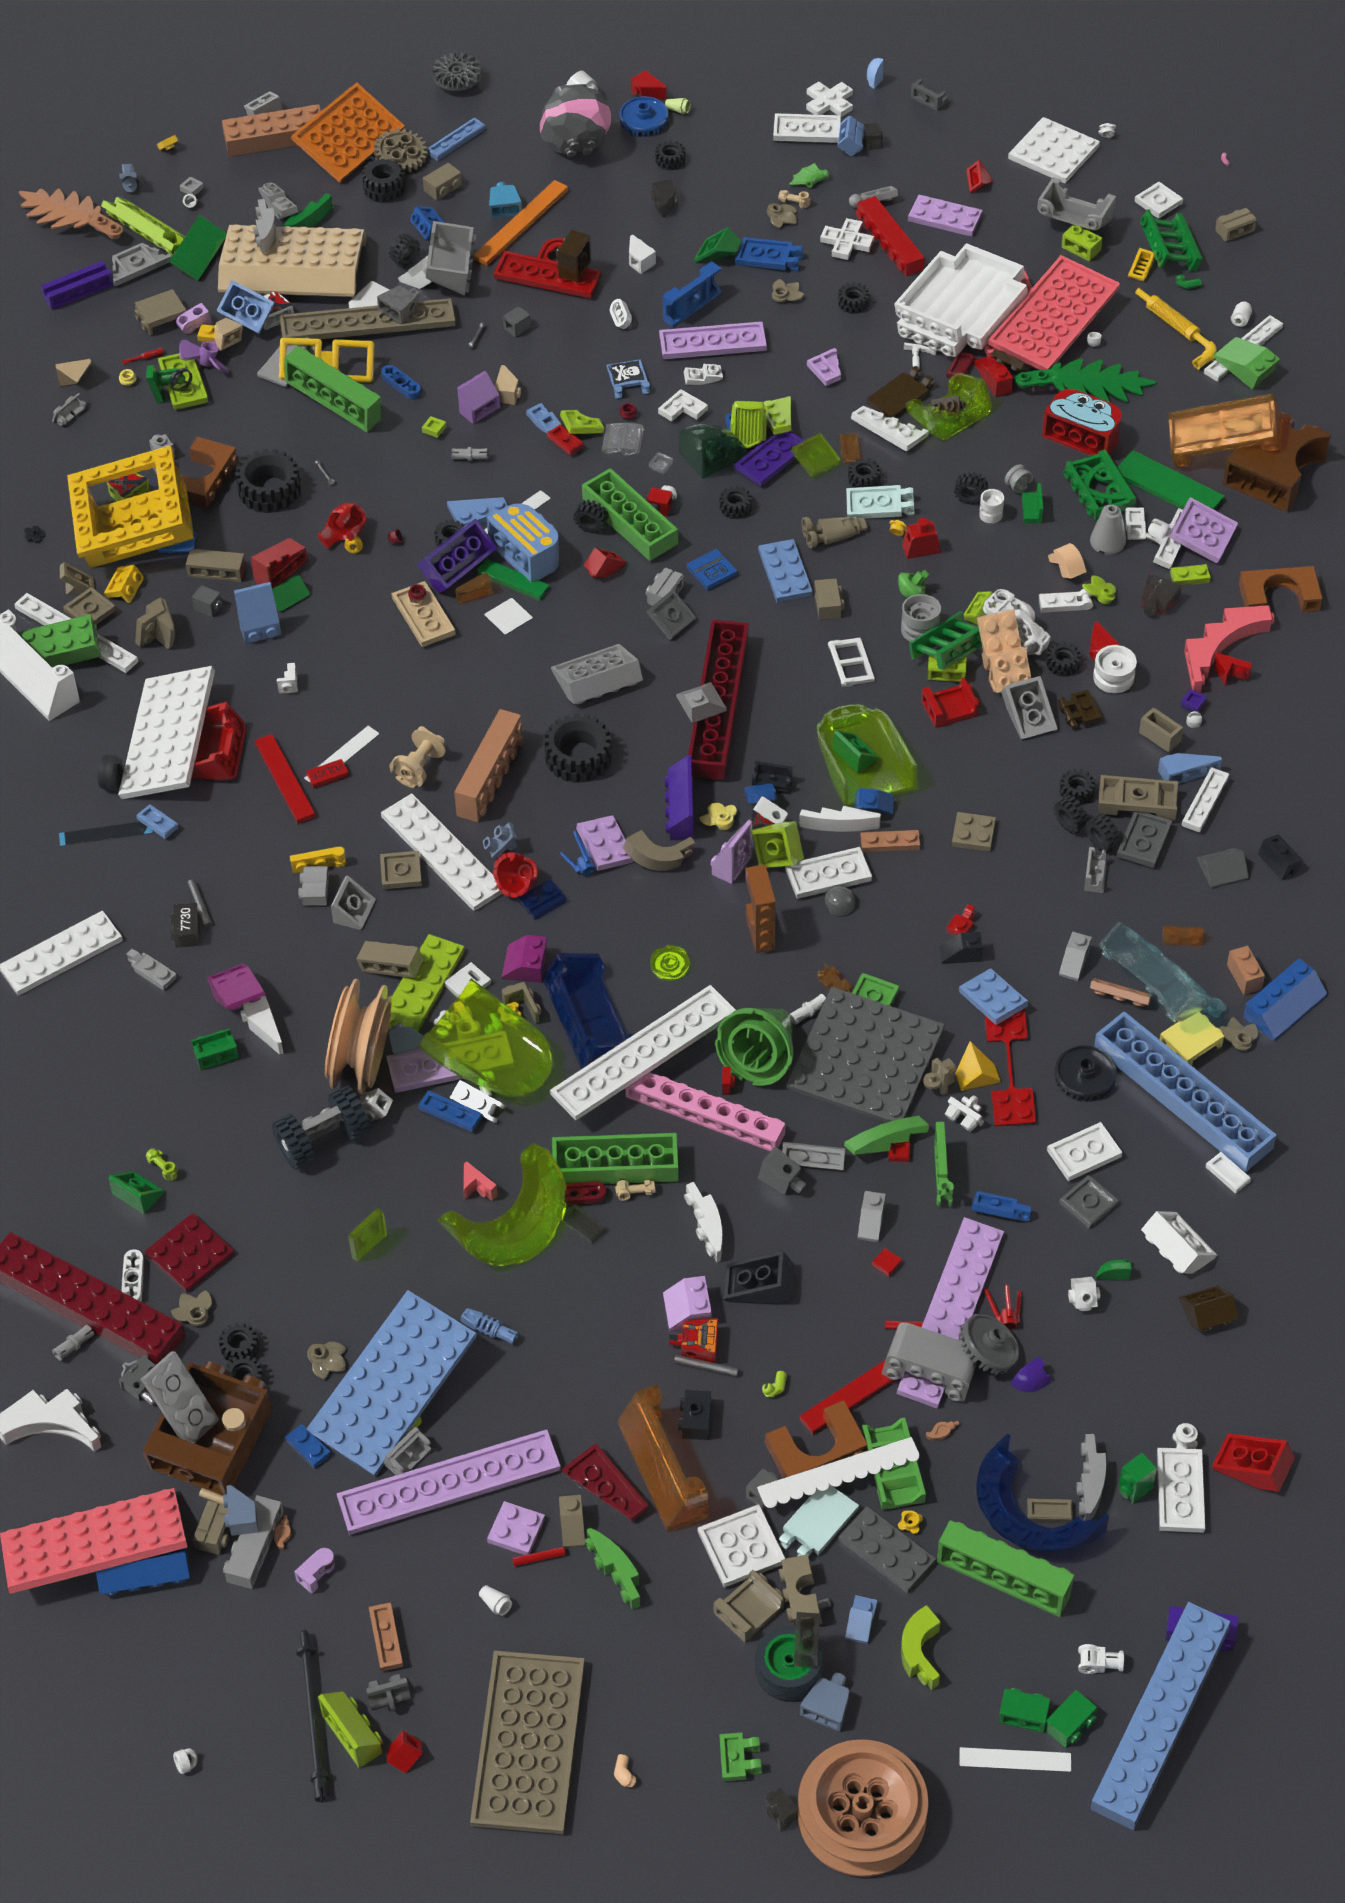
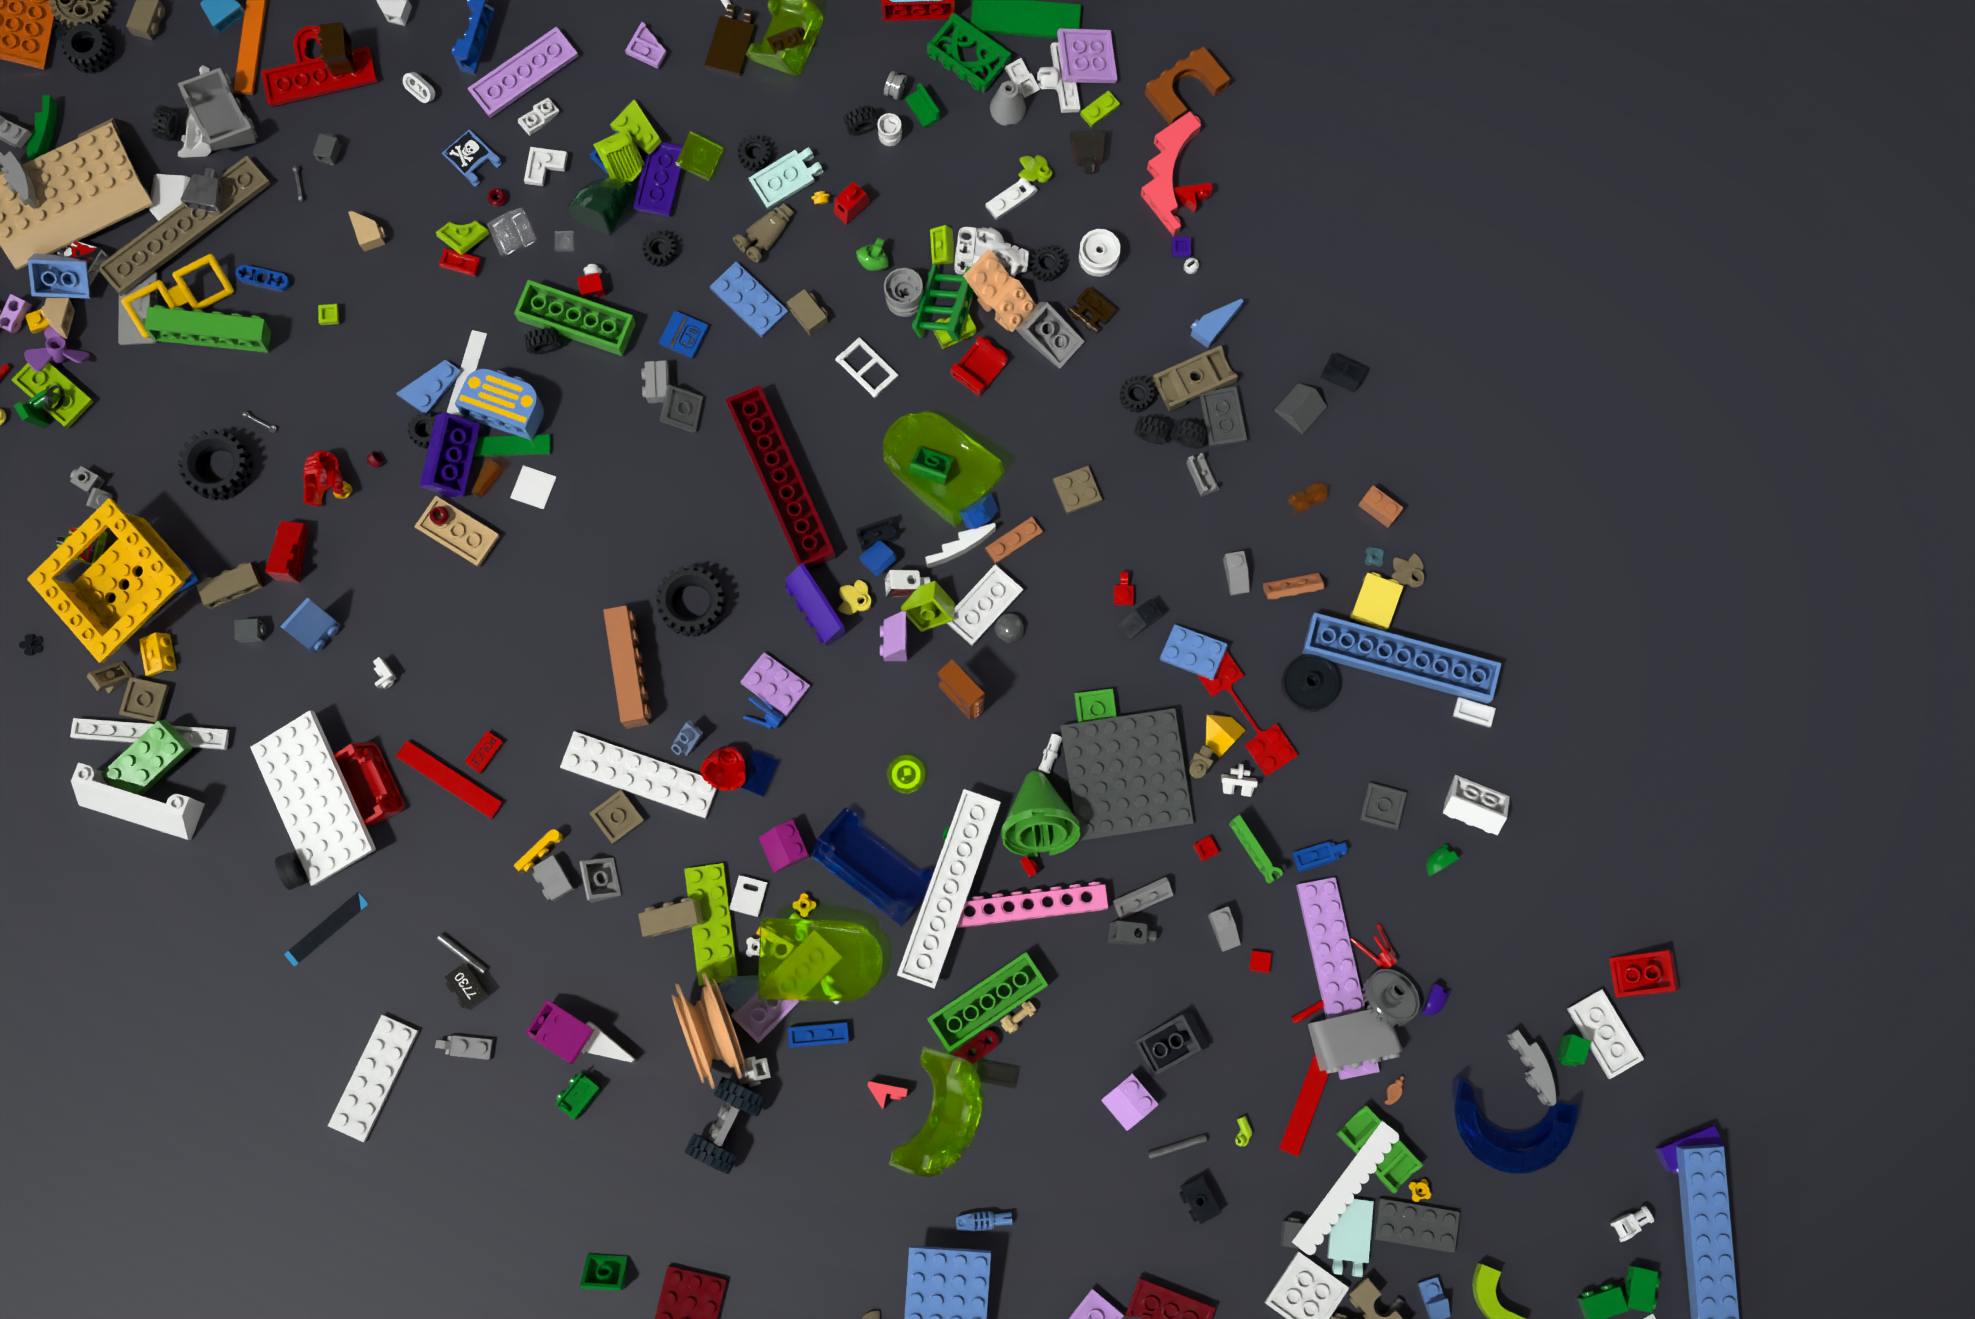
camera: 35 degrees left, 25 degrees up
(156, 624) = (220, 684): dark tan piece -> none
(157, 821) = (366, 893): medium blue plate -> none
(169, 1168) = (619, 1238): lime bar -> none
(219, 457) = (153, 461): dark orange arch -> none
(289, 592) = (316, 578): green panel -> none
(352, 746) = (485, 712): white sticker -> none
(367, 1234) = (832, 1203): clear neon green tile -> none
(410, 767) = (558, 702): tan piece -> none
(423, 220) = (163, 73): blue bracket -> none
(470, 453) = (382, 327): light grey pin -> none
(476, 1100) = (834, 1012): hinge -> none
(478, 398) = (350, 262): medium lavender slope -> none
(520, 993) = (796, 887): dark tan bracket -> none
(542, 418) = (424, 248): medium blue slope -> none
(597, 673) = (654, 508): light grey slope -> none
(603, 563) = (585, 383): red slope -> none
(654, 856) = (819, 680): dark tan arch -> none
(675, 1497) = (1233, 1293): clear orange windscreen -> none
(697, 1339) = (1158, 1130): torso -> none
(701, 702) = (773, 496): light grey slope -> none
(708, 1220) = (1104, 1018): white slope -> none
(830, 976) = (1050, 710): clear orange hinge -> none
(846, 1435) = (1333, 1154): dark orange arch -> none
(849, 447) = (722, 128): clear orange tile -> none
(880, 1137) = (1191, 842): bright green slope -> none
(889, 428) = (754, 88): white wing -> none
(1005, 1568) = (1521, 1194): bright green brick -> none
(1049, 1510) = (1517, 1112): dark tan tile -> none
(1069, 561) = (992, 154): light nougat brick -> none
(1084, 1151) = (1353, 761): white plate -> none
(1084, 1293) = (1433, 901): white brick -> none
(1099, 640) = (1070, 230): red slope -> none
(1161, 729) = (1174, 296): dark tan piece -> none
(1162, 977) = (1326, 555): clear light blue windscreen -> none
(1185, 1436) = (1577, 986): white brick -> none
(1205, 799) = (1249, 347): white plate -> none
(1209, 1308) = (1533, 852): dark brown slope -> none
(1285, 1000) = (1427, 517): blue slope -> none

